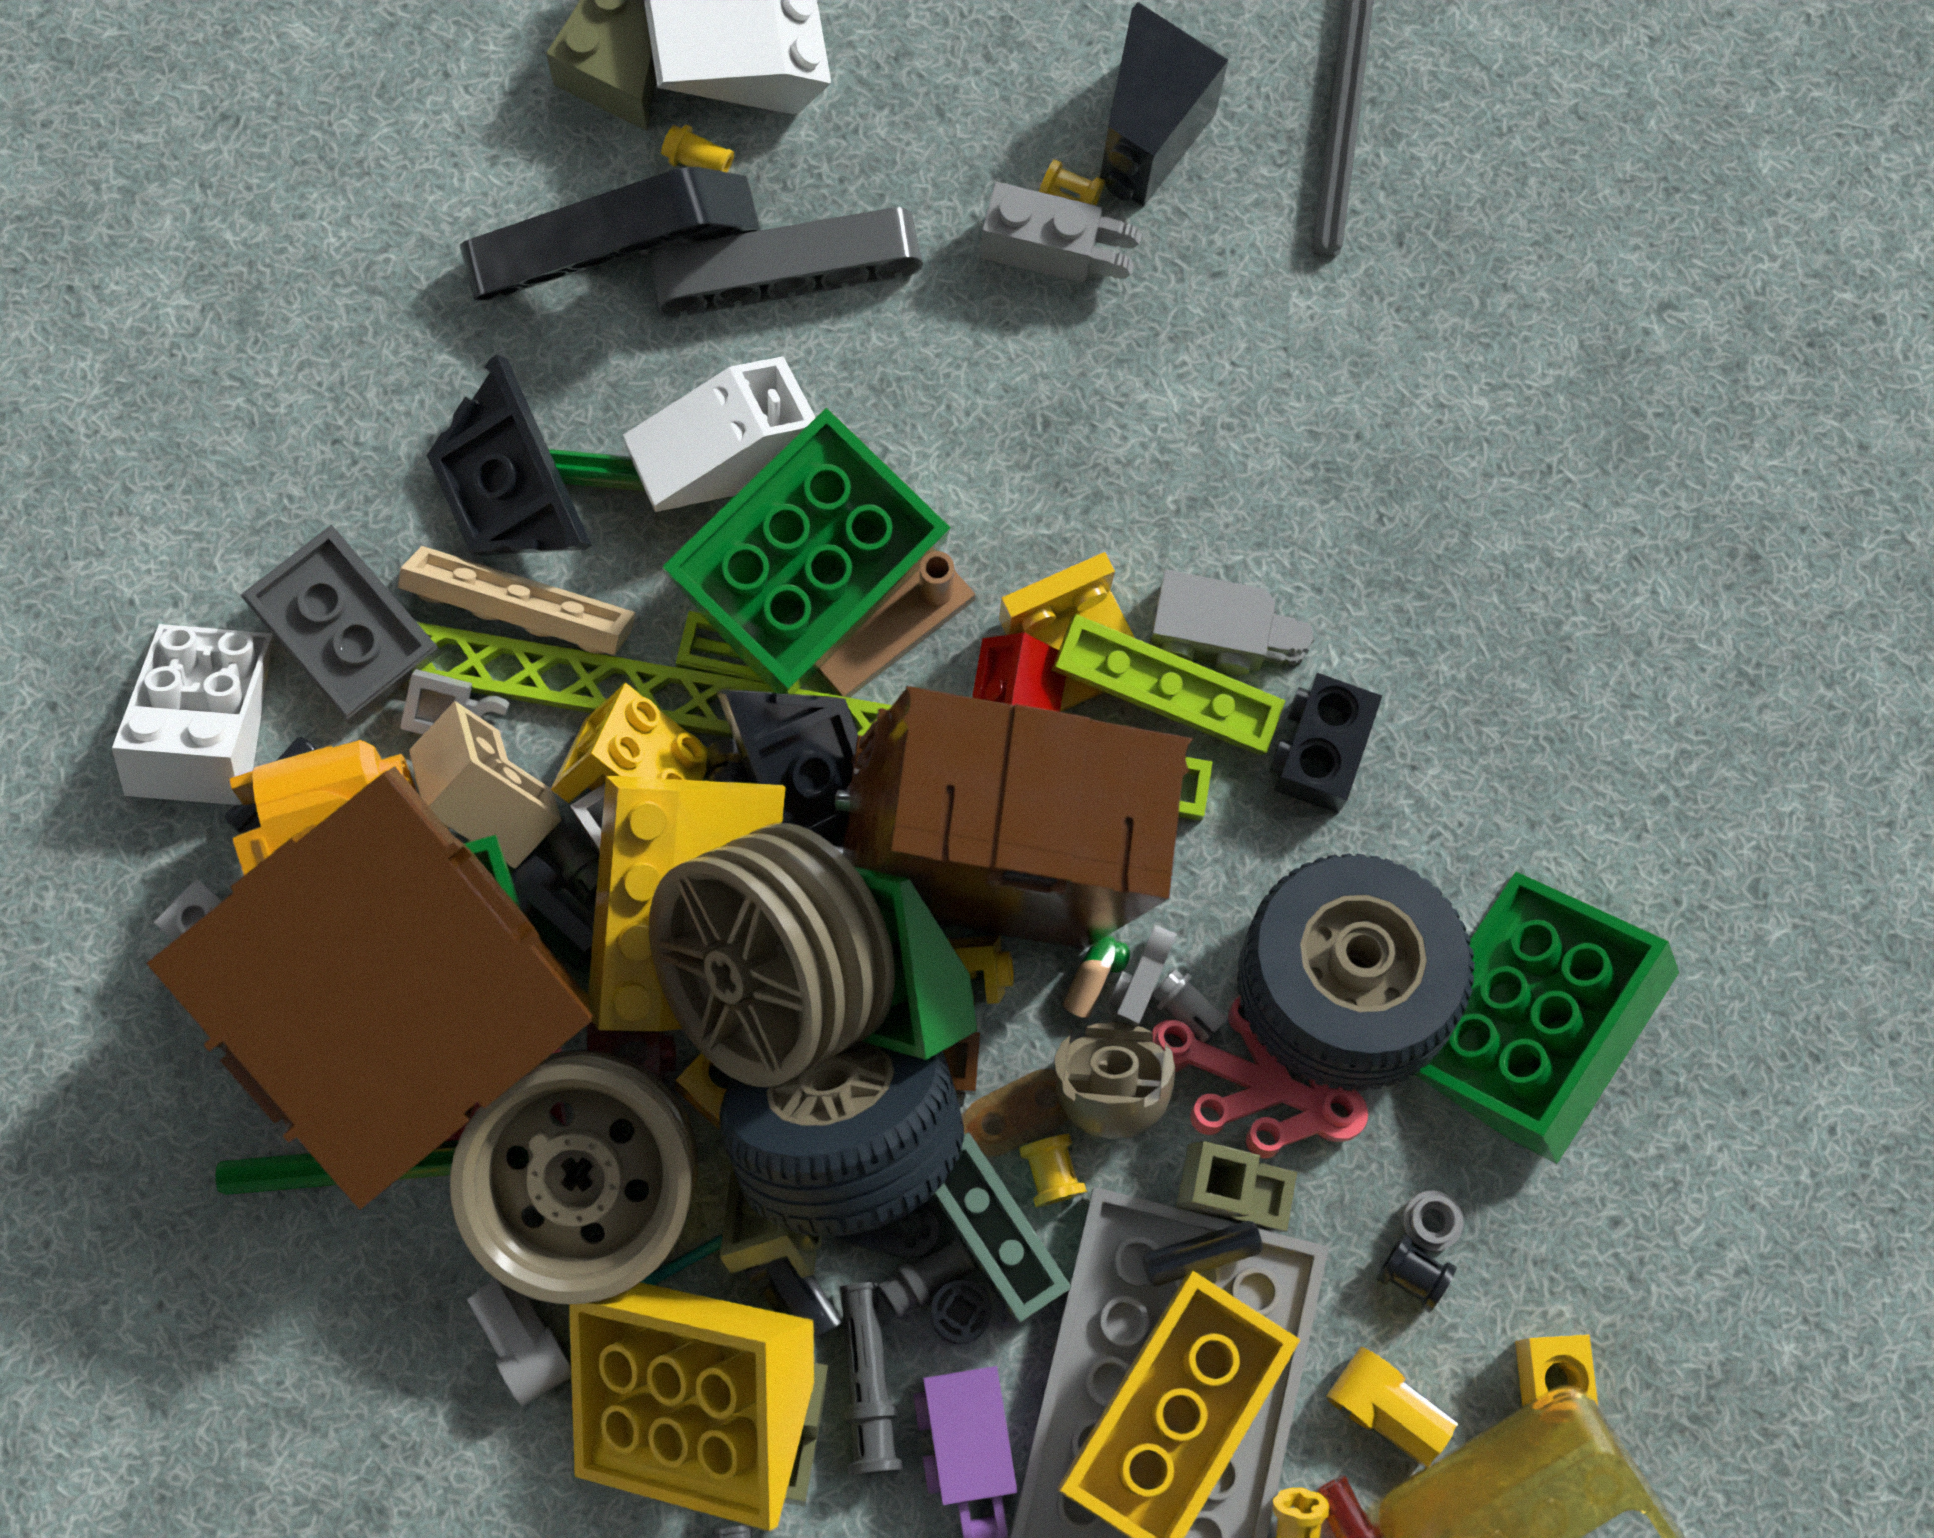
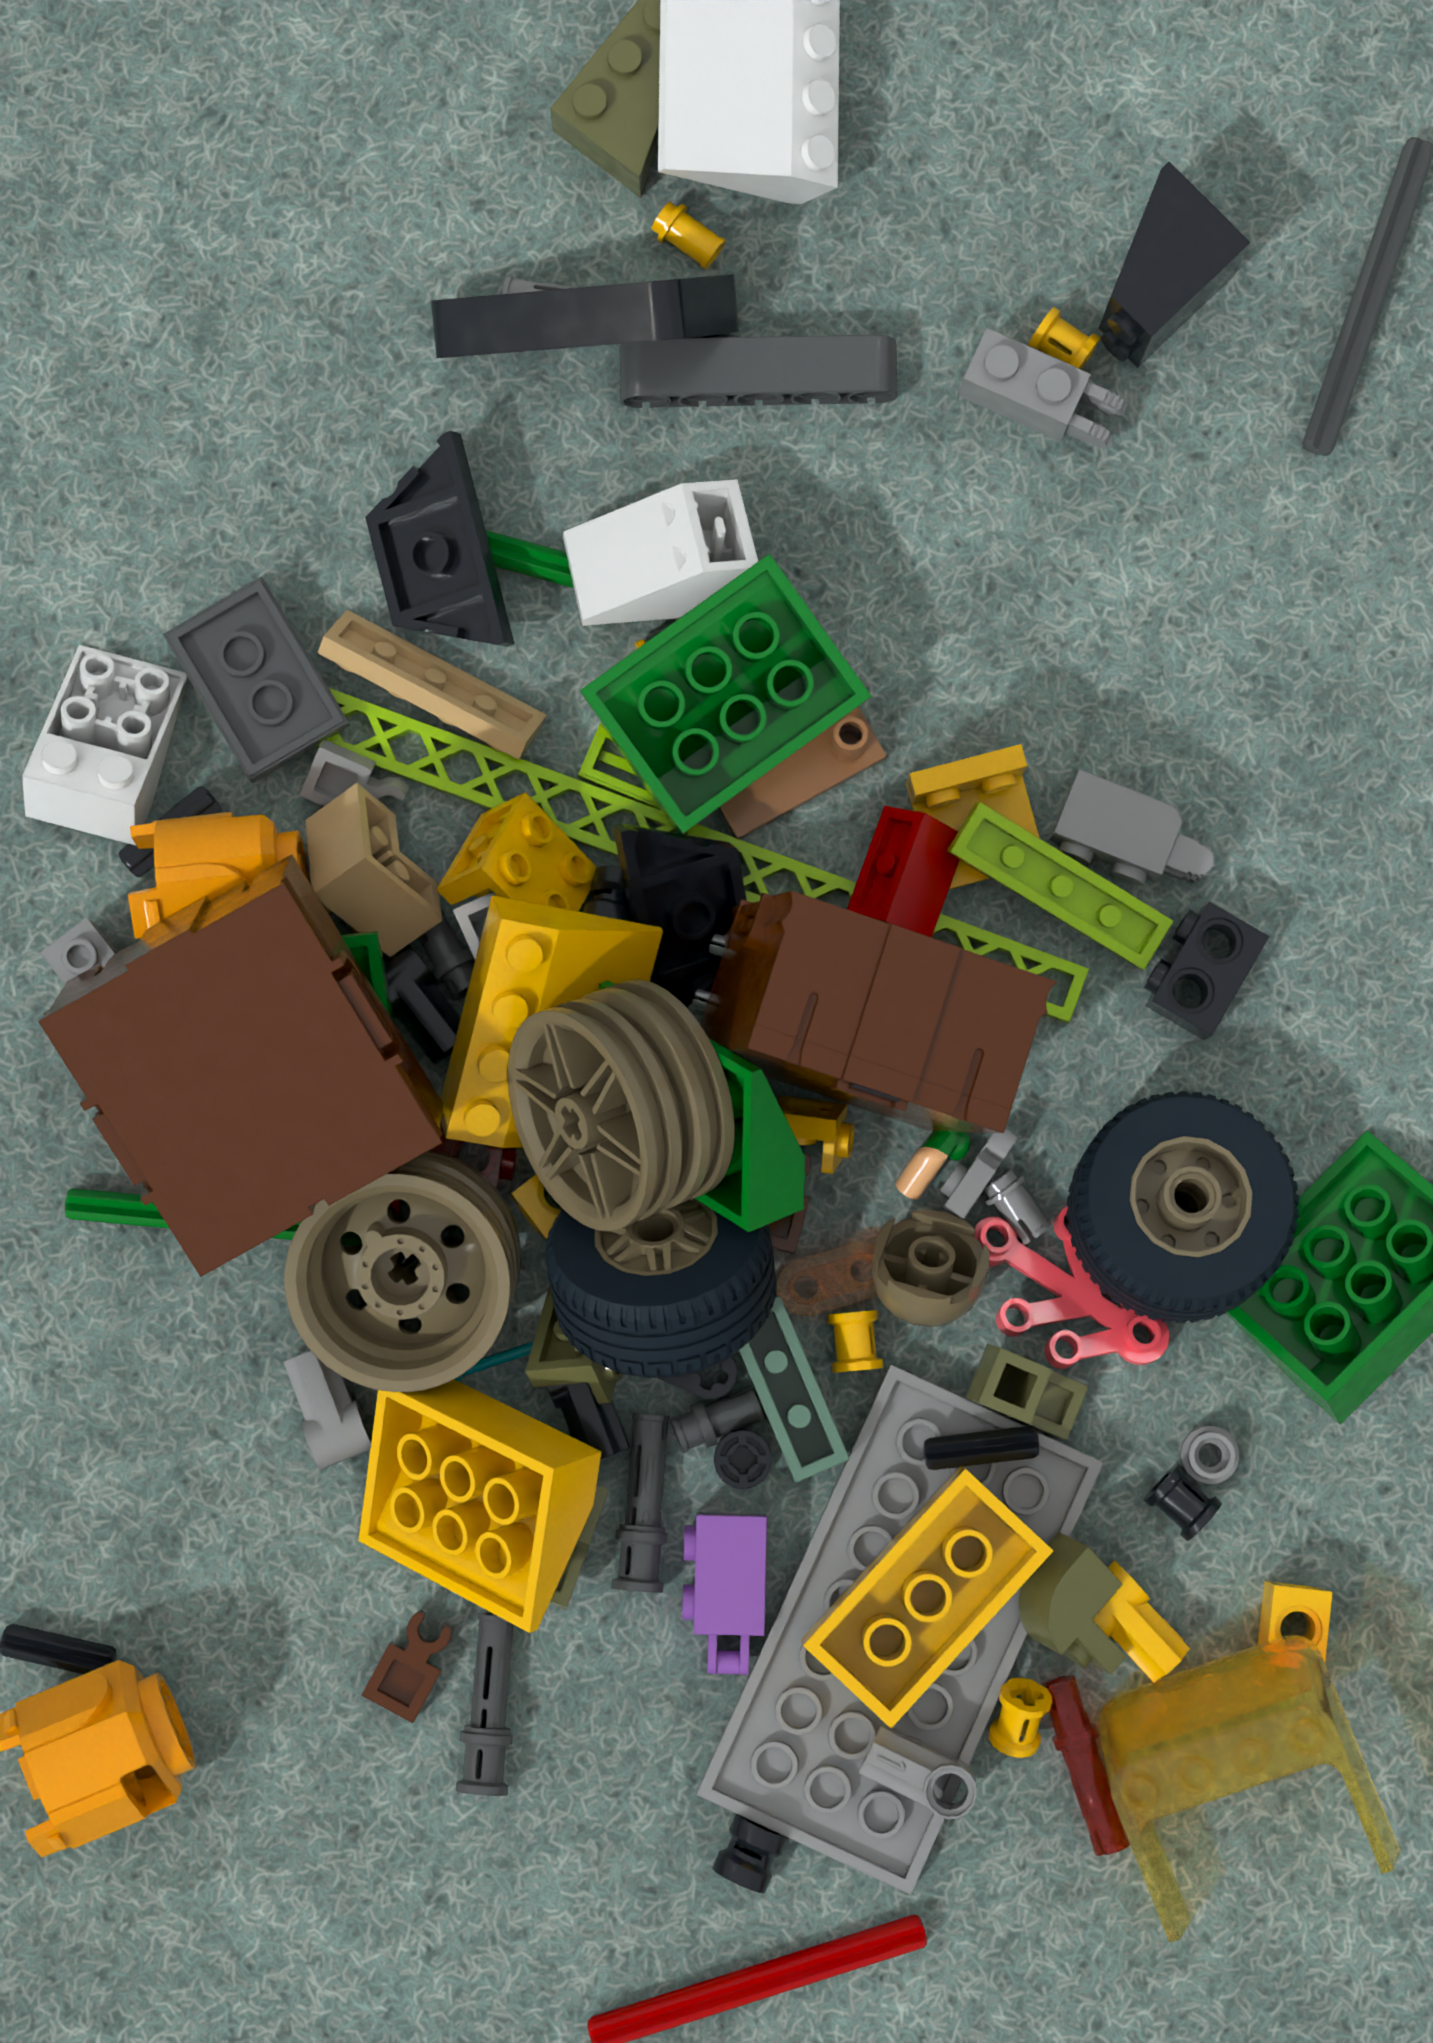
camera: 15 degrees right, 10 degrees up
(1318, 1396) = (1064, 1599): none -> olive brick

